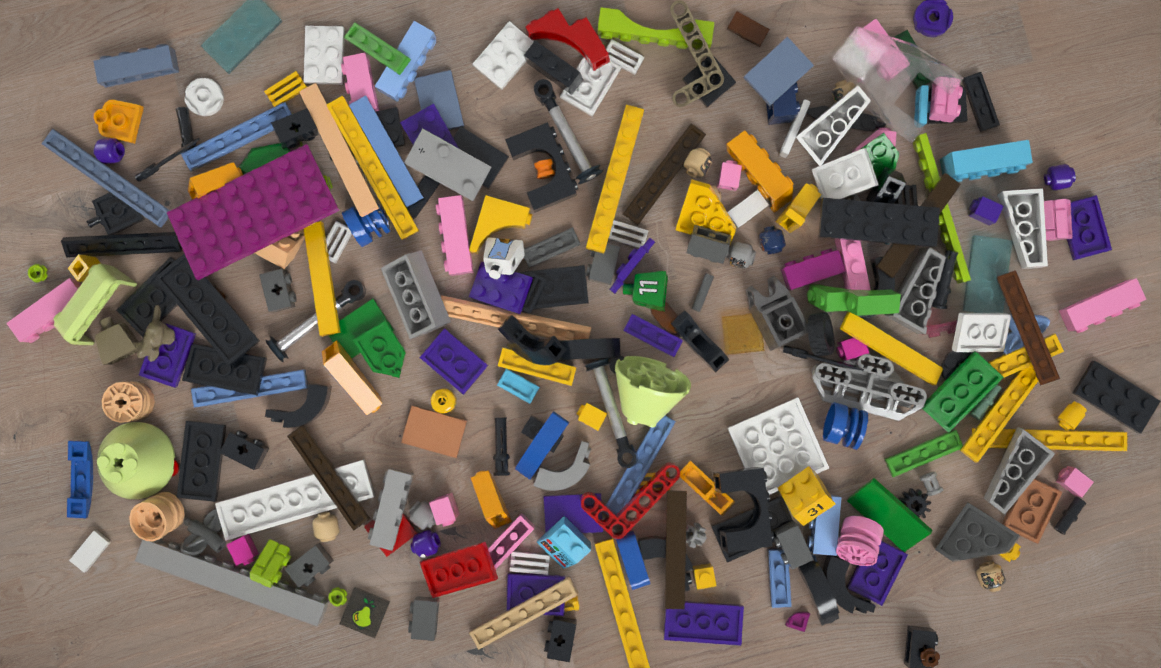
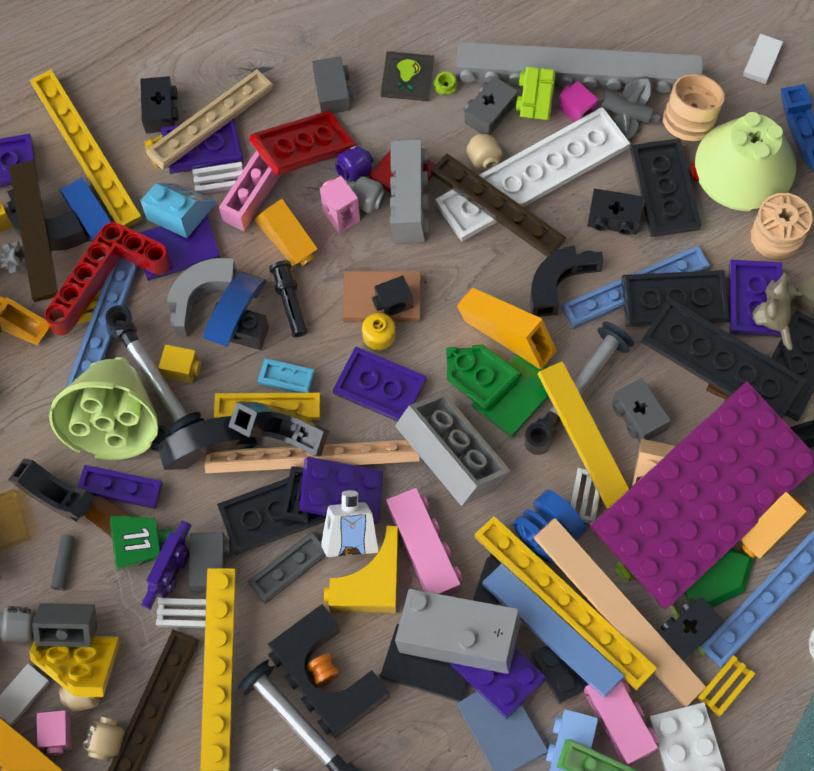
camera: 165 degrees right, 20 degrees down
(426, 423) = (393, 296): none -> black brick

